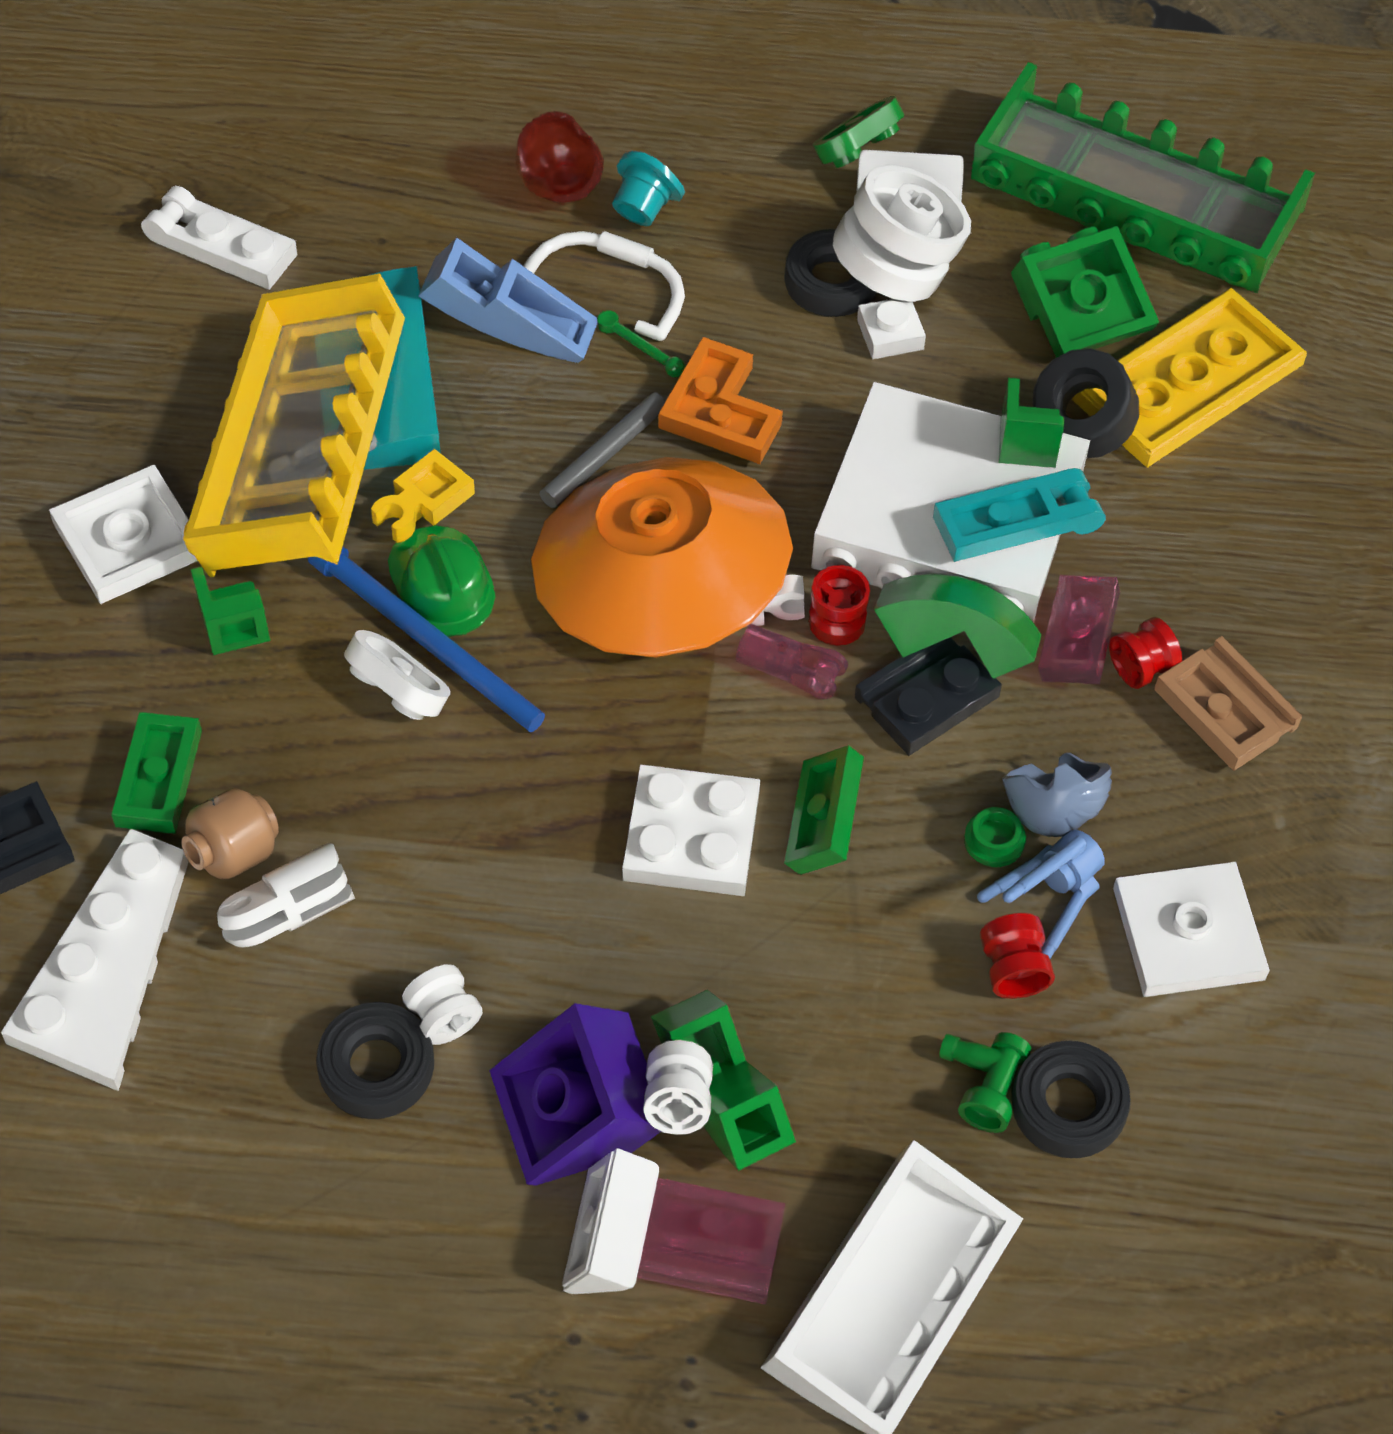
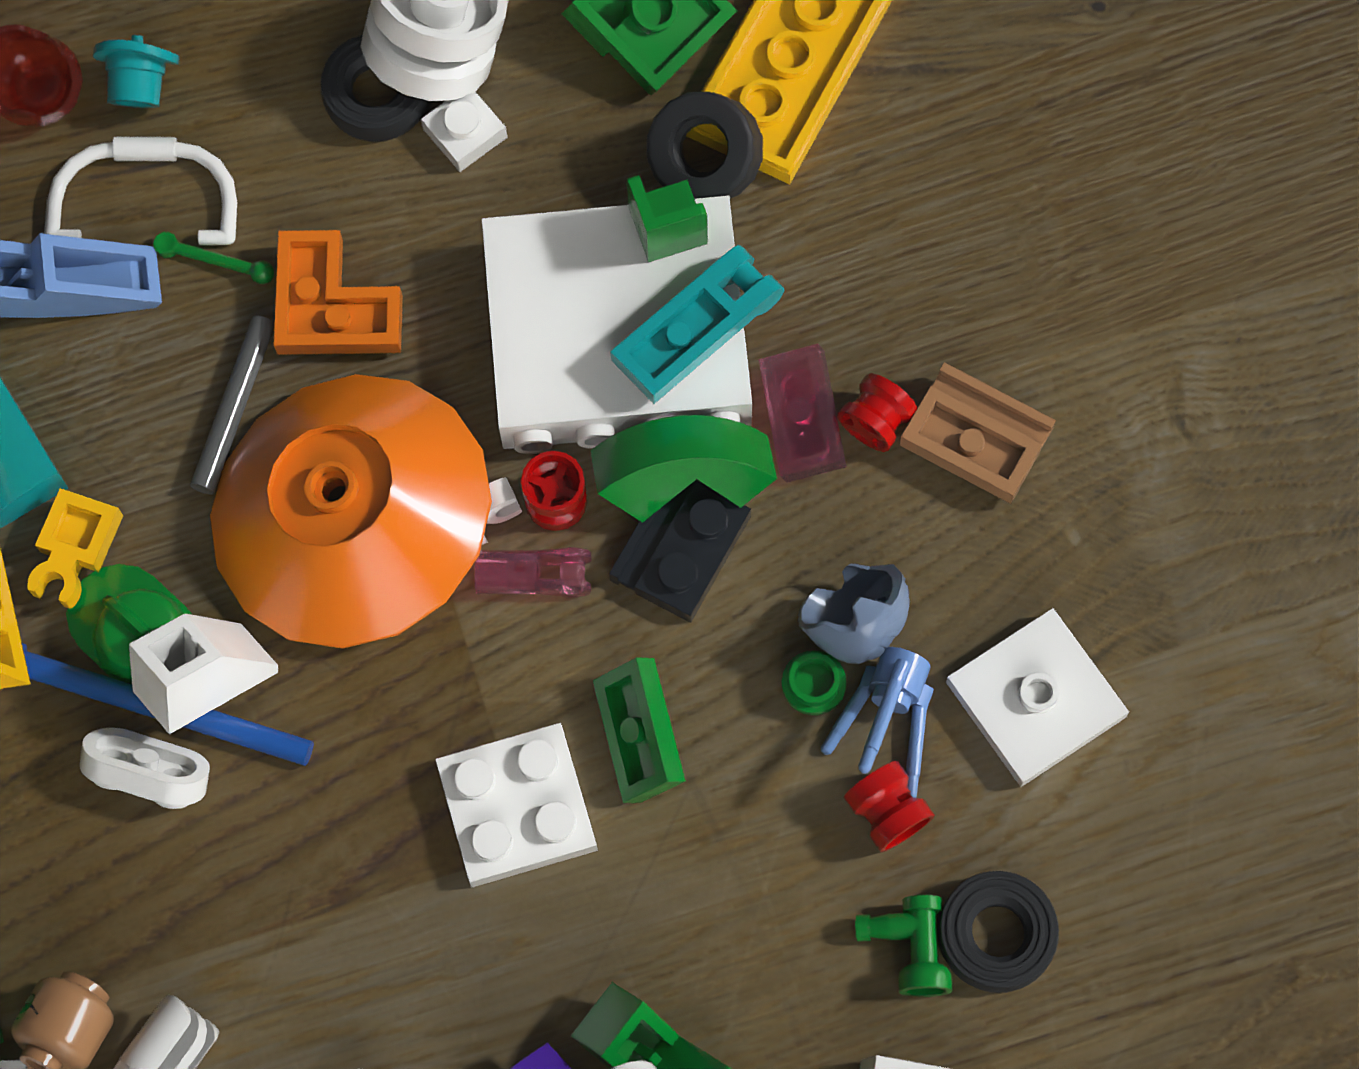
camera: 20 degrees left, 15 degrees up
(475, 610) = (195, 667): none -> white slope

